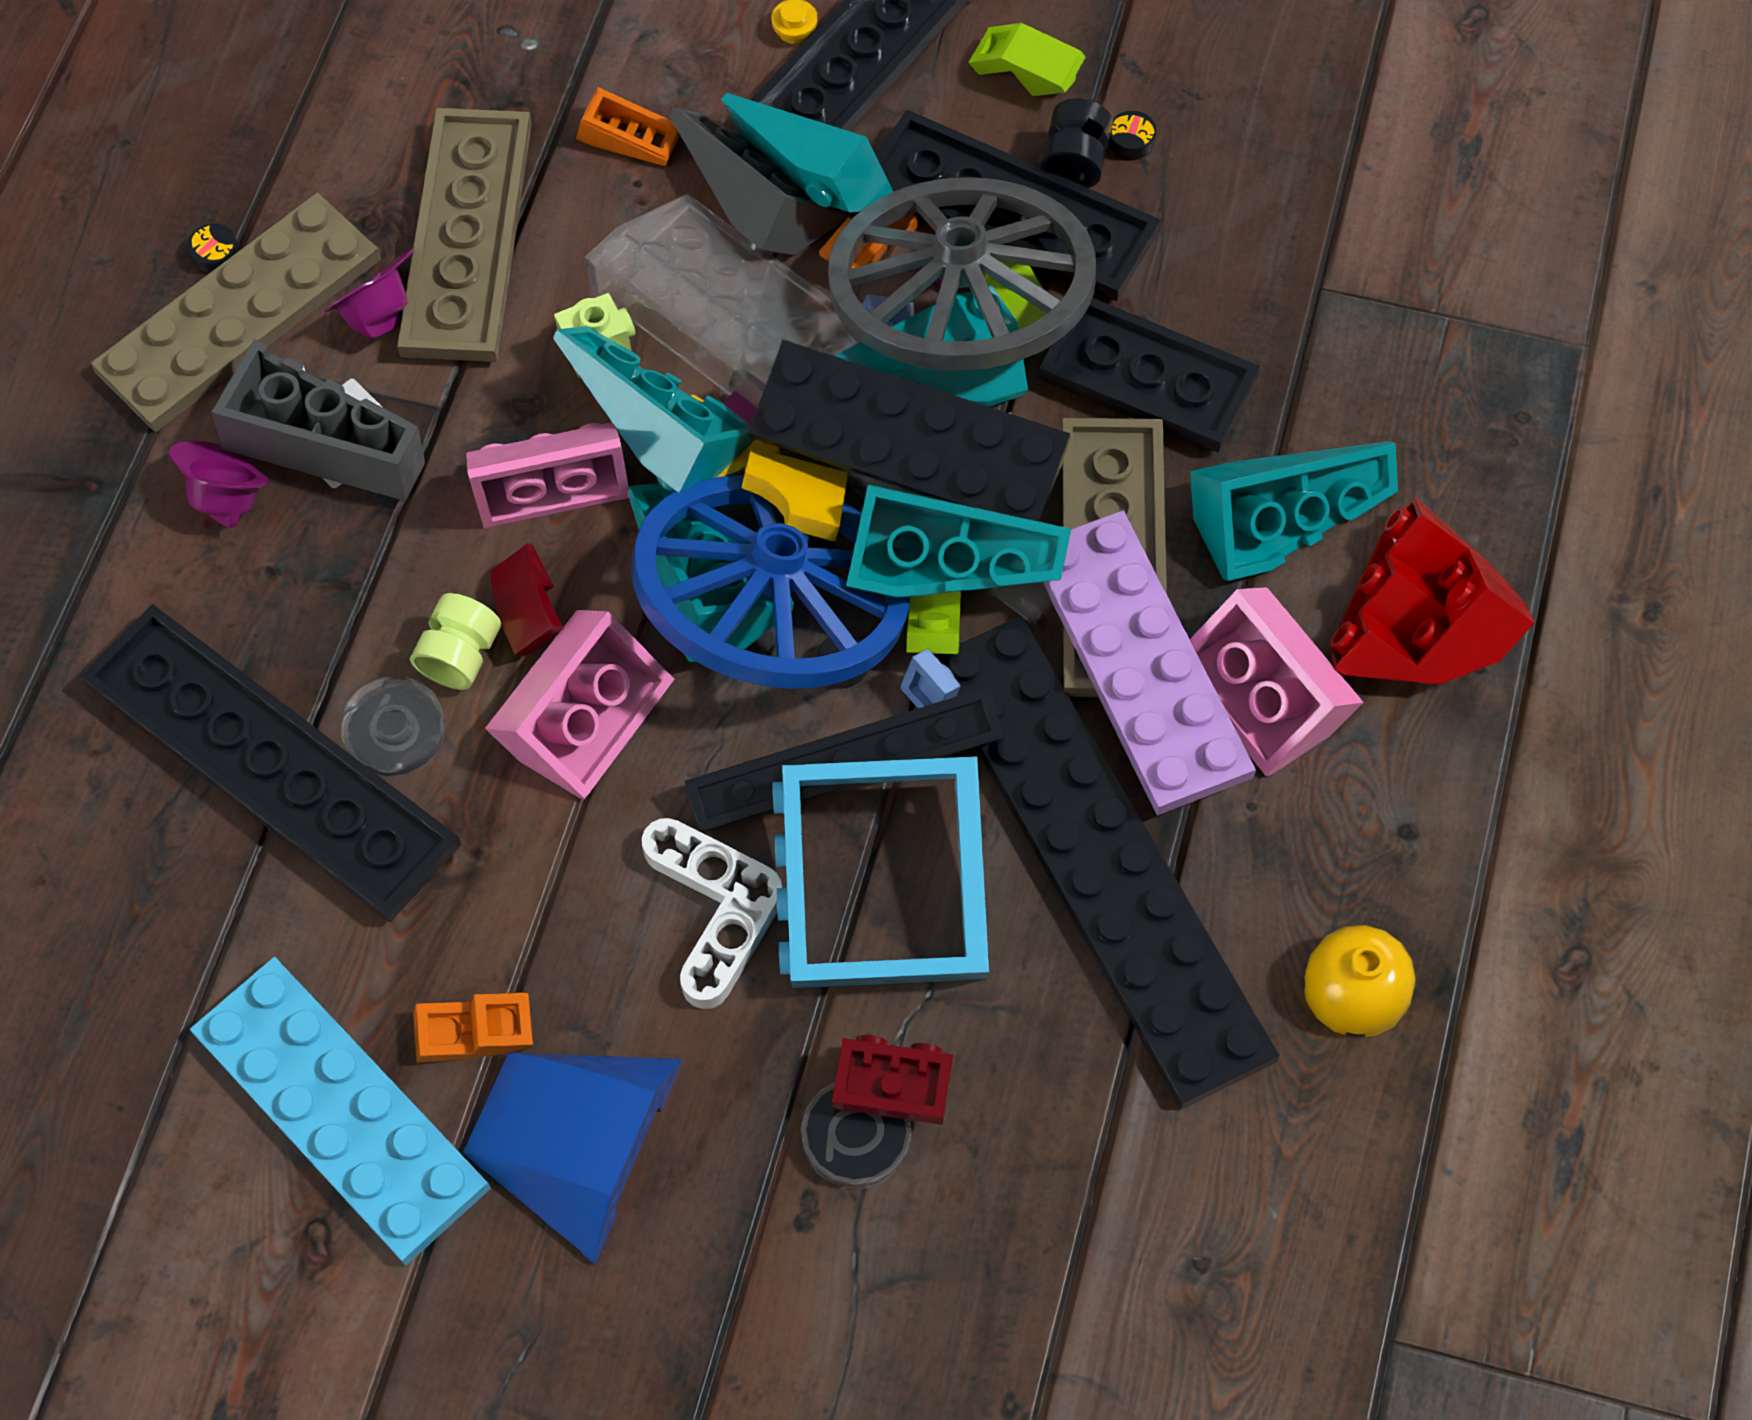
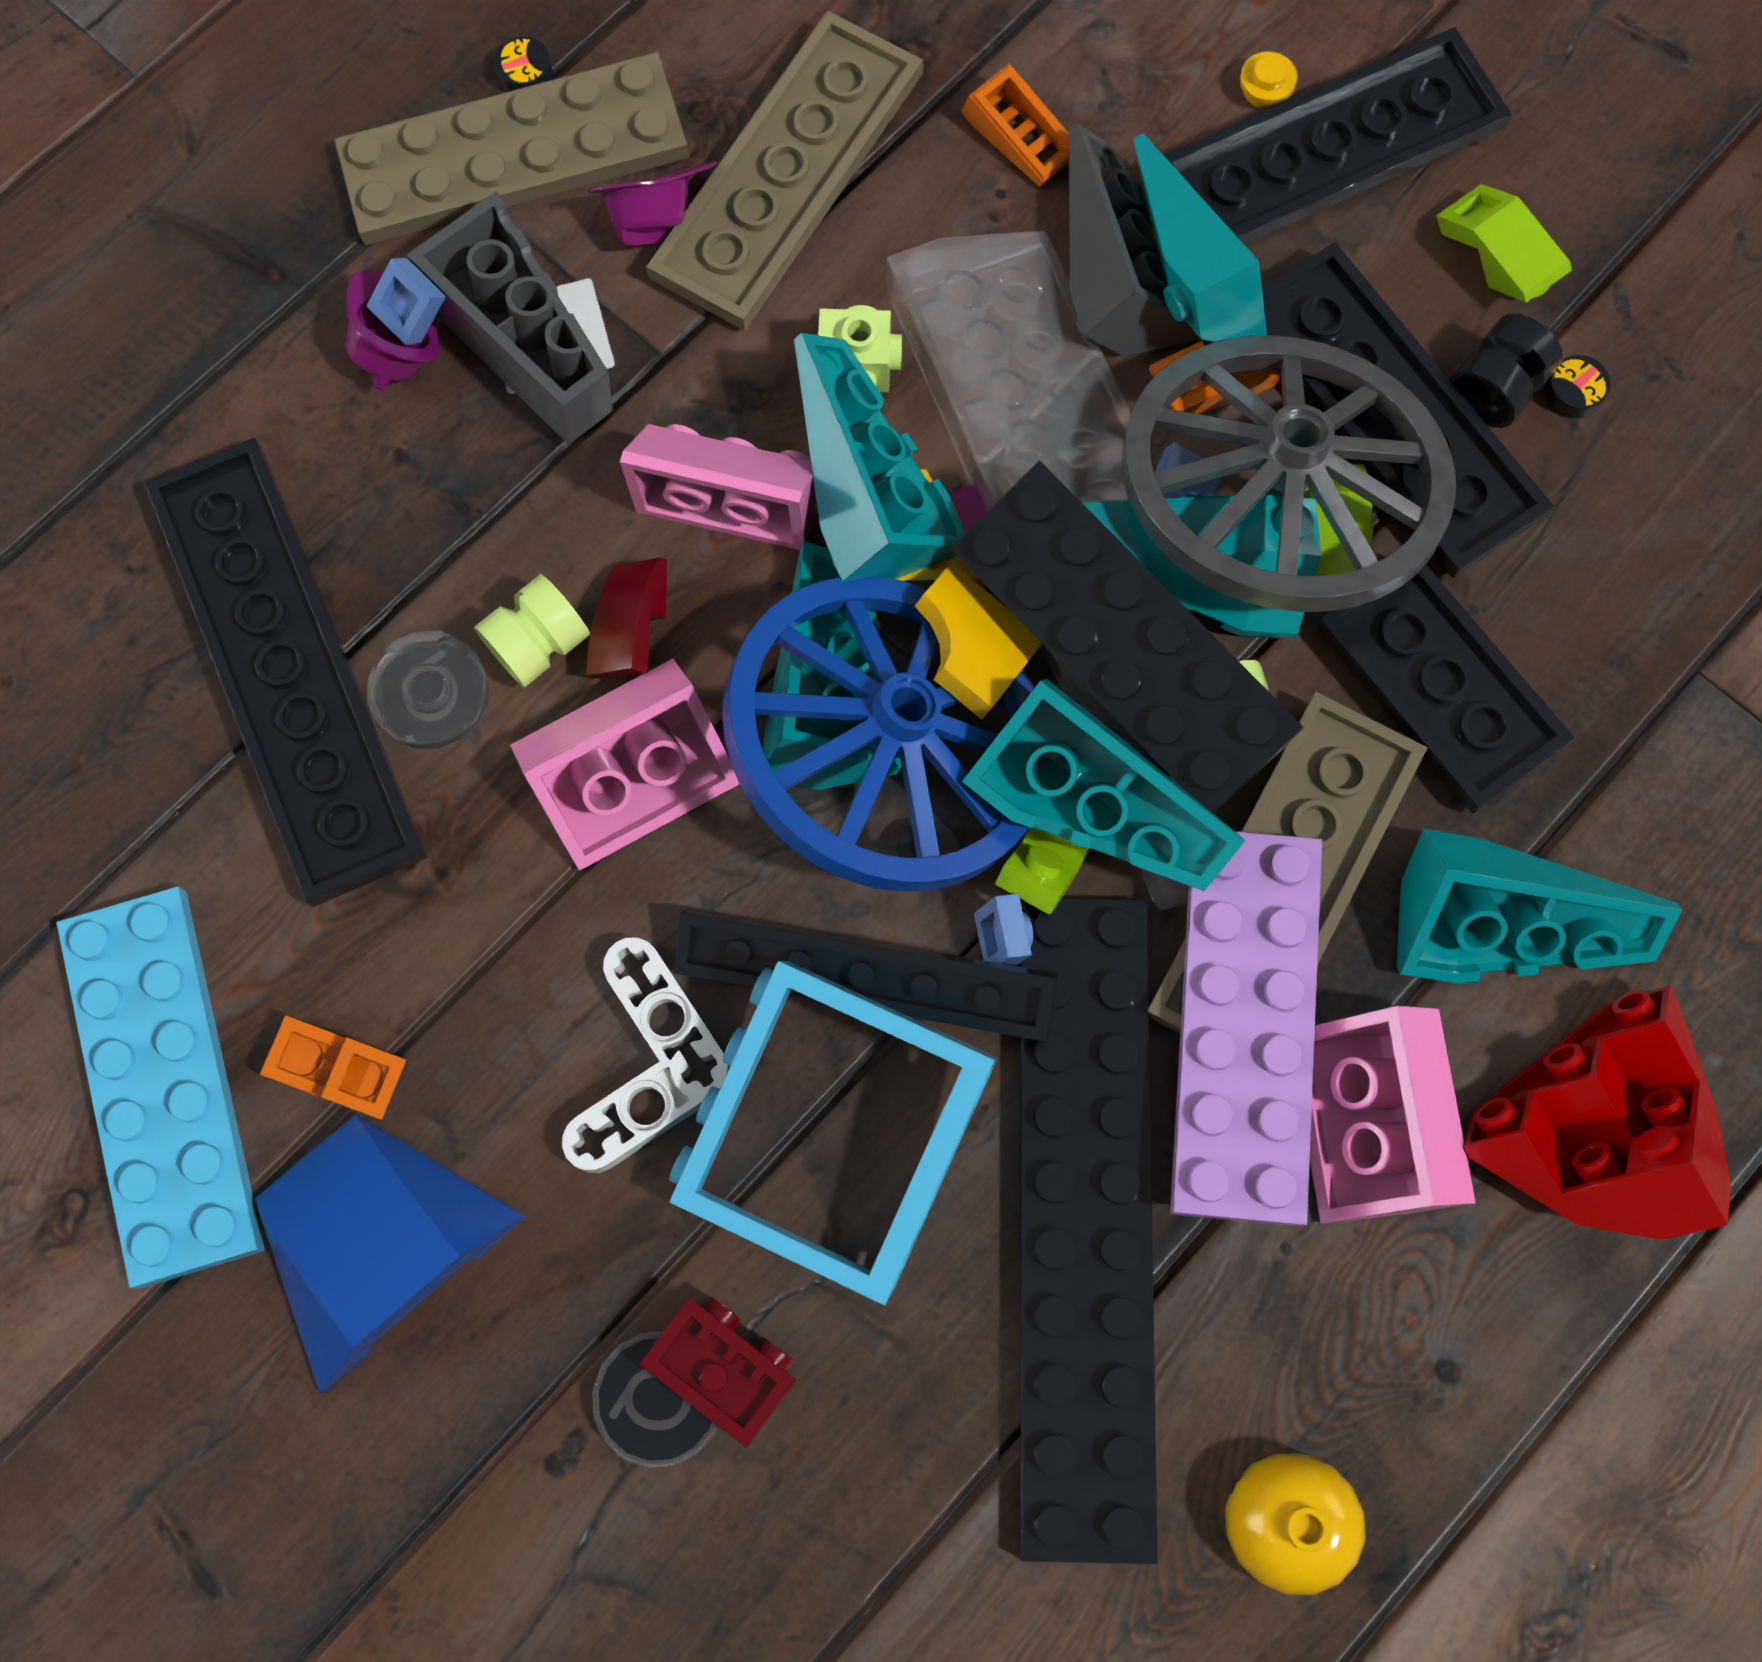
camera: 30 degrees right, 10 degrees up
(227, 447) = (405, 301): none -> medium blue plate

